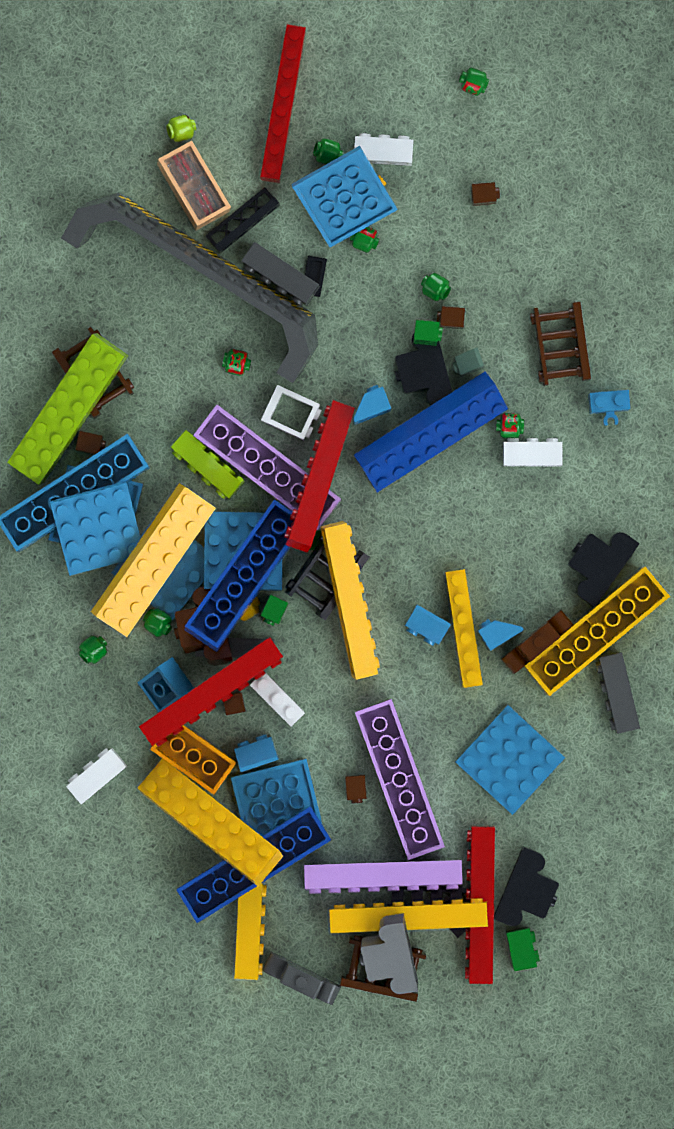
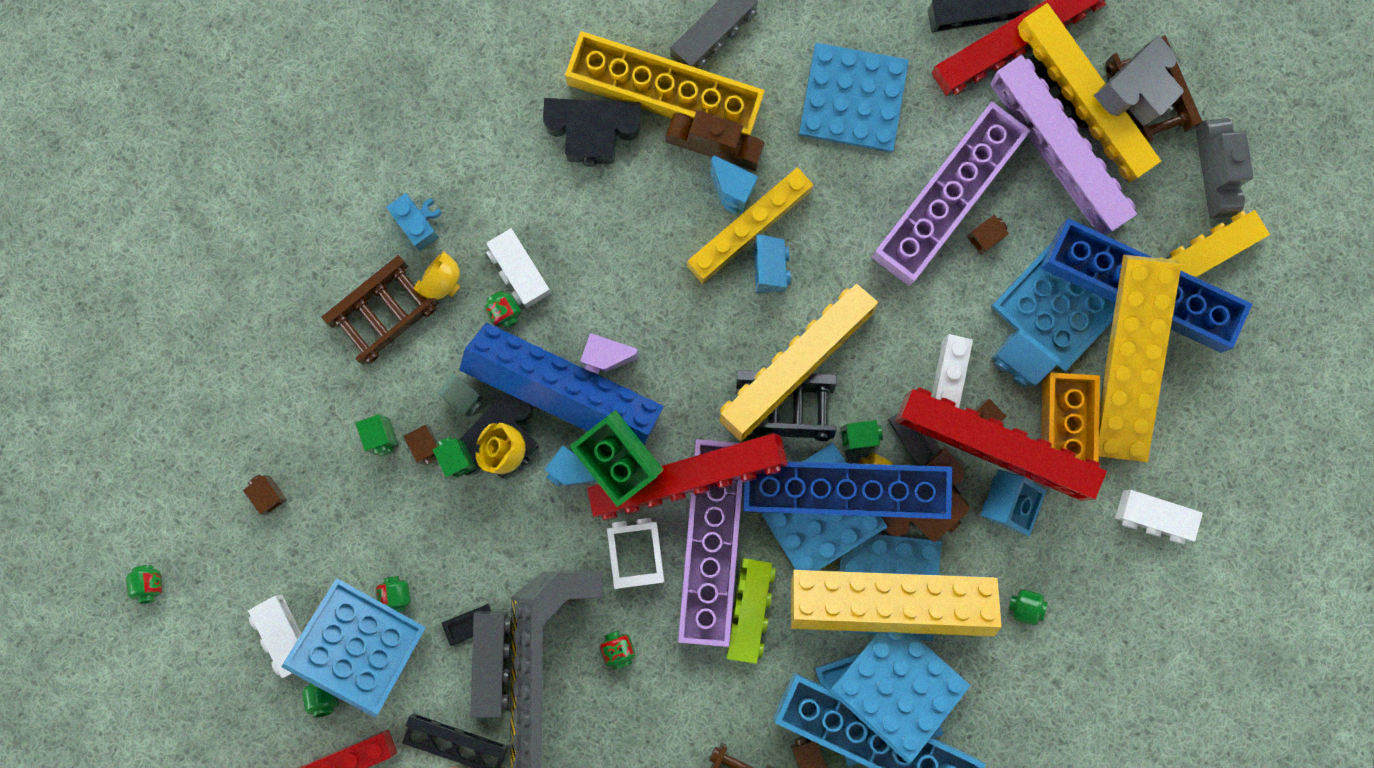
camera: 130 degrees left, 5 degrees down
(157, 622) = (954, 555): green head -> none
(359, 437) = (616, 458): none -> green brick
(414, 366) = (500, 448): none -> yellow cylinder
(435, 287) = (400, 483): green head -> none
(435, 474) = (606, 355): none -> lavender slope
(475, 291) = (377, 435): none -> green brick
(558, 396) = (439, 278): none -> yellow cylinder

